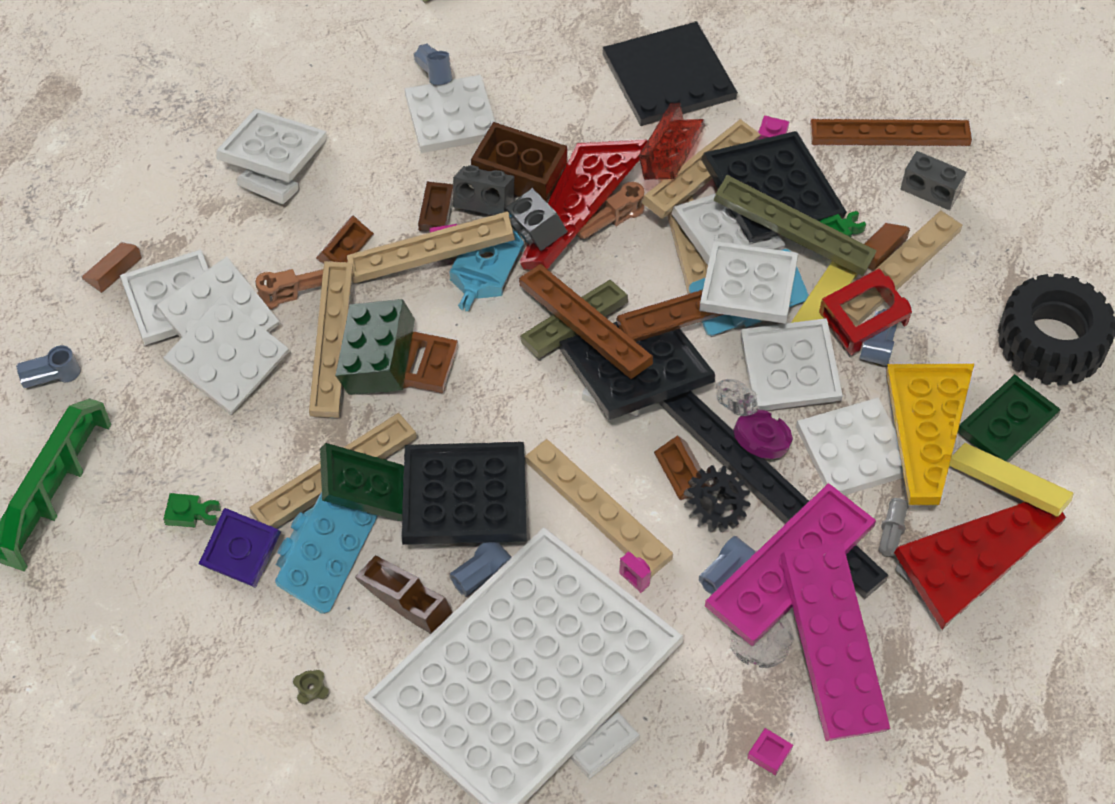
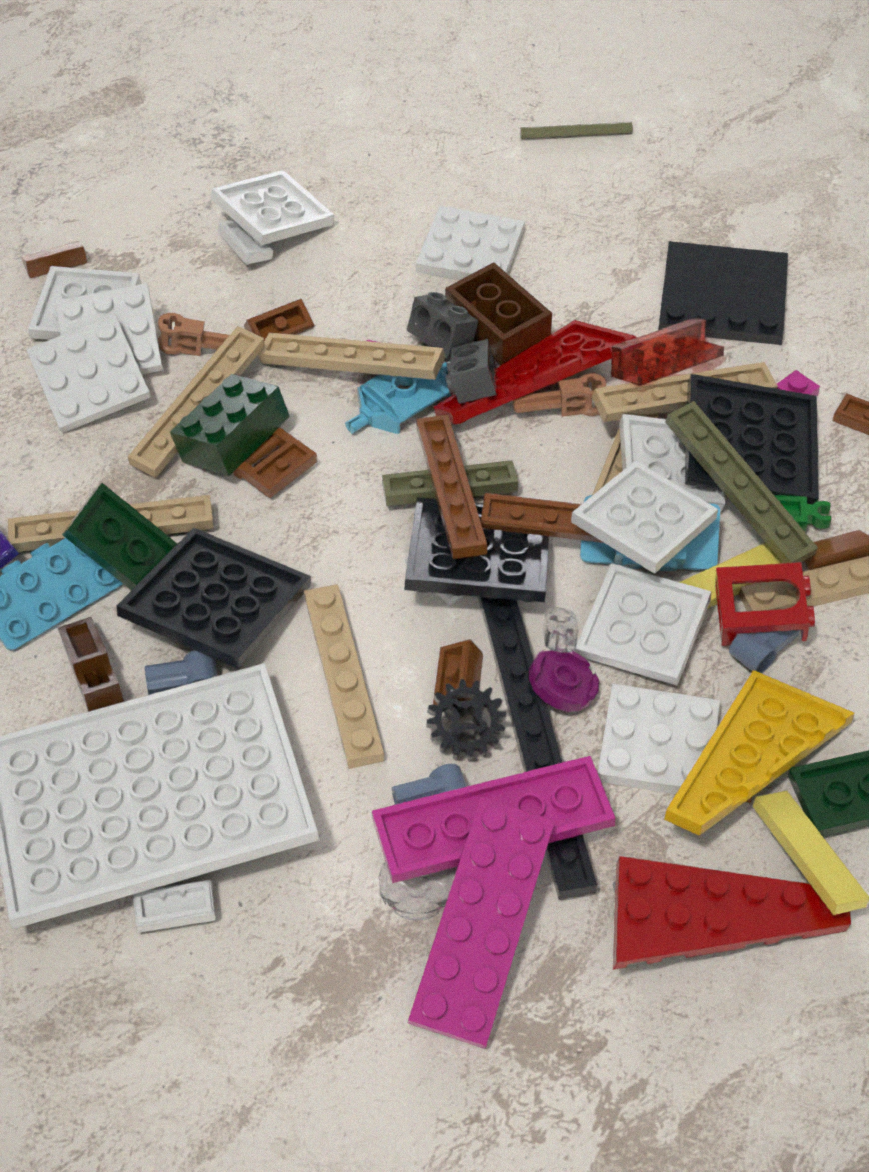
camera: 30 degrees right, 5 degrees down
(434, 63) = (481, 193): sand blue piece -> none
(435, 205) = (388, 323): reddish brown plate -> none
(635, 571) = (331, 751): dark pink plate -> none
(770, 751) = (338, 1001): dark pink plate -> none
(893, 526) = (642, 838): light grey axle -> none

